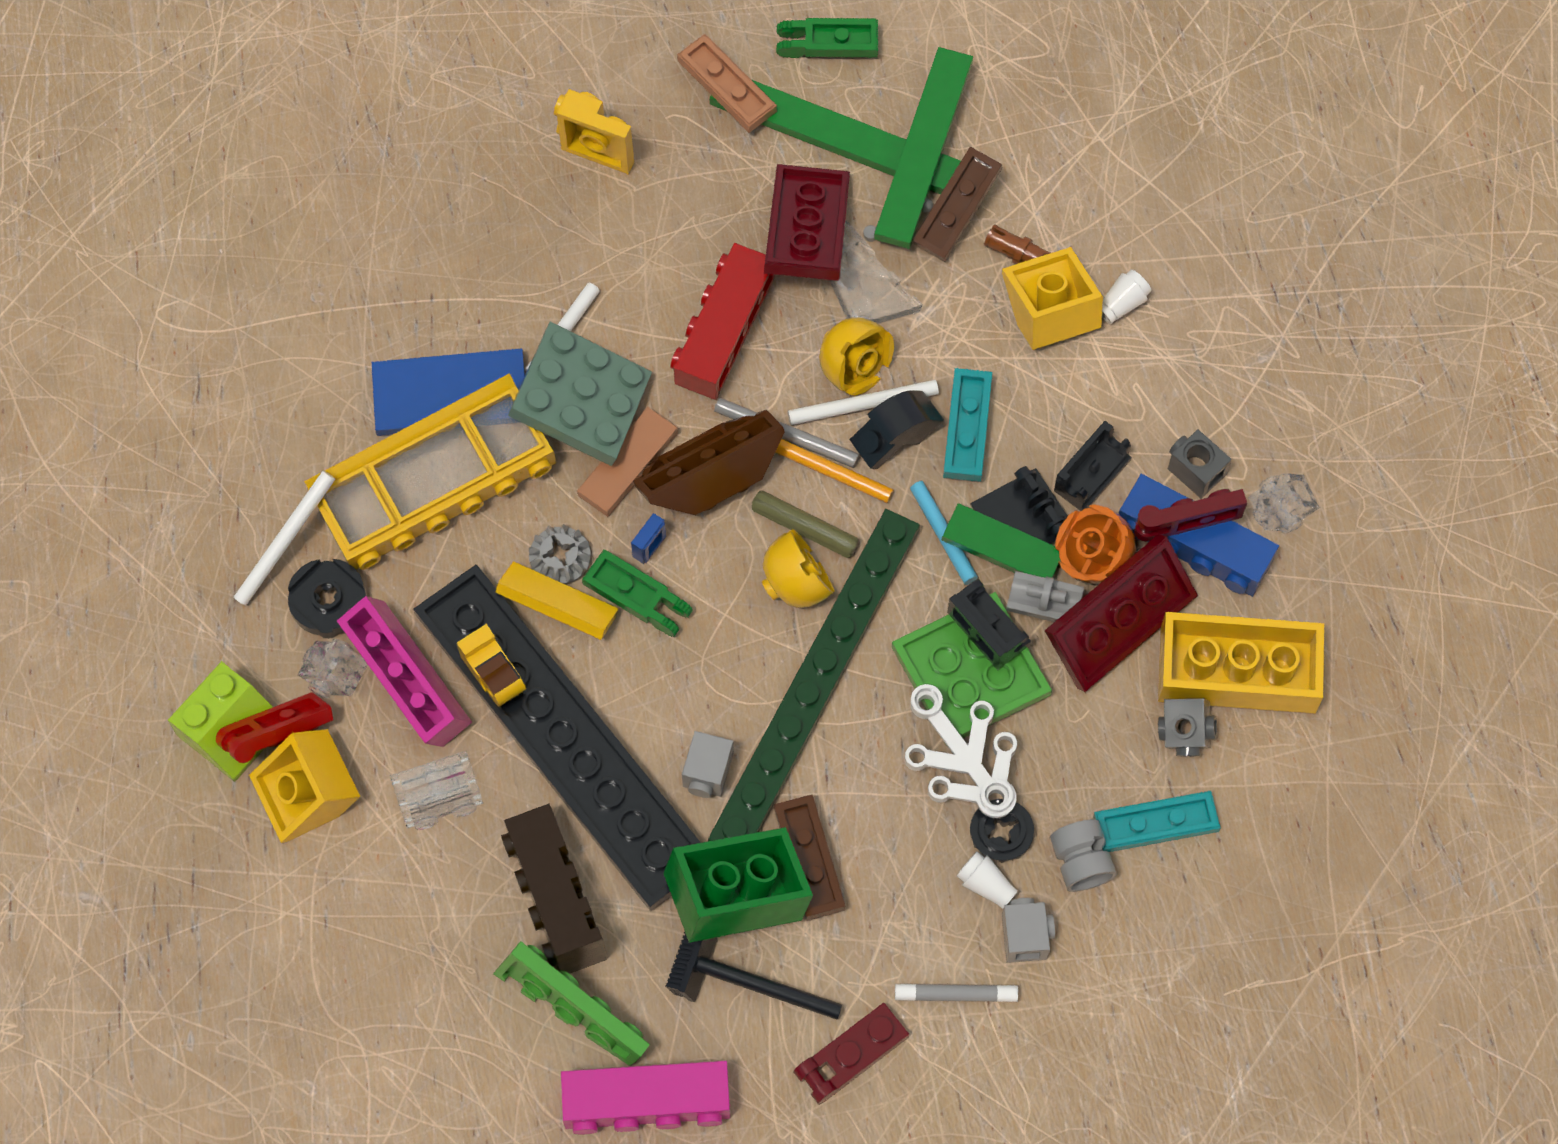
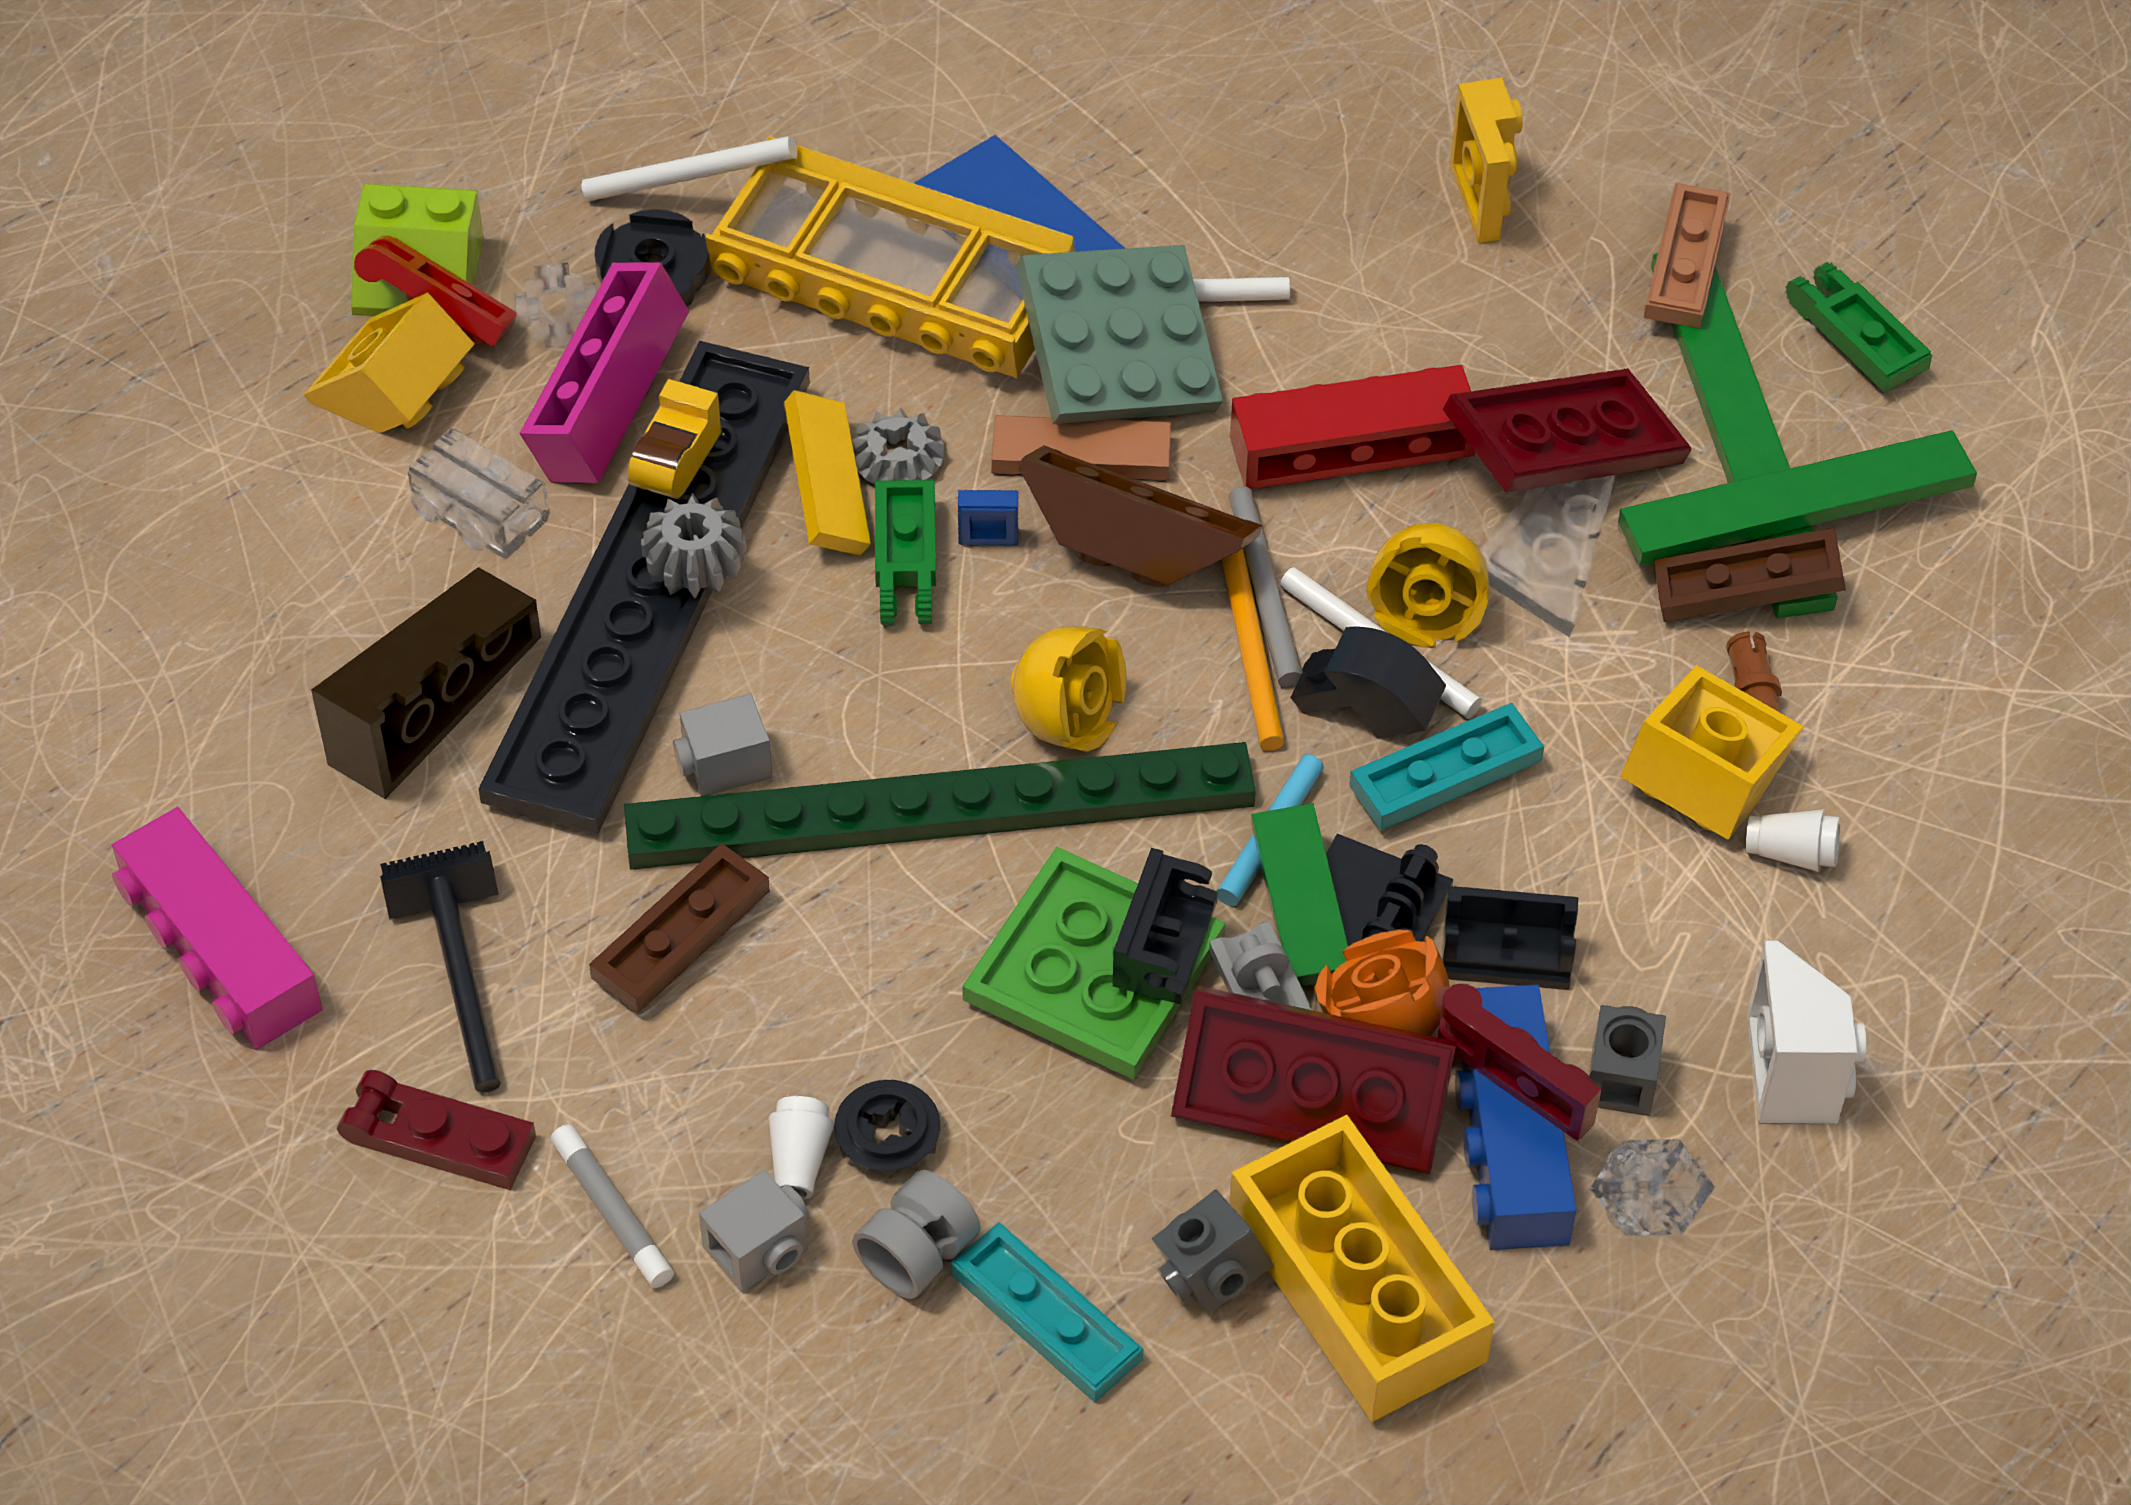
camera: 55 degrees right, 15 degrees down
(570, 1003) = (282, 797): bright green wing -> none
(583, 689) = (693, 546): none -> light grey gear
(737, 884) = (565, 846): green brick -> none
(804, 524) = (1151, 672): olive axle -> none
(965, 757) = (954, 1011): white plant -> none
(1249, 380) = (1801, 1041): none -> white slope

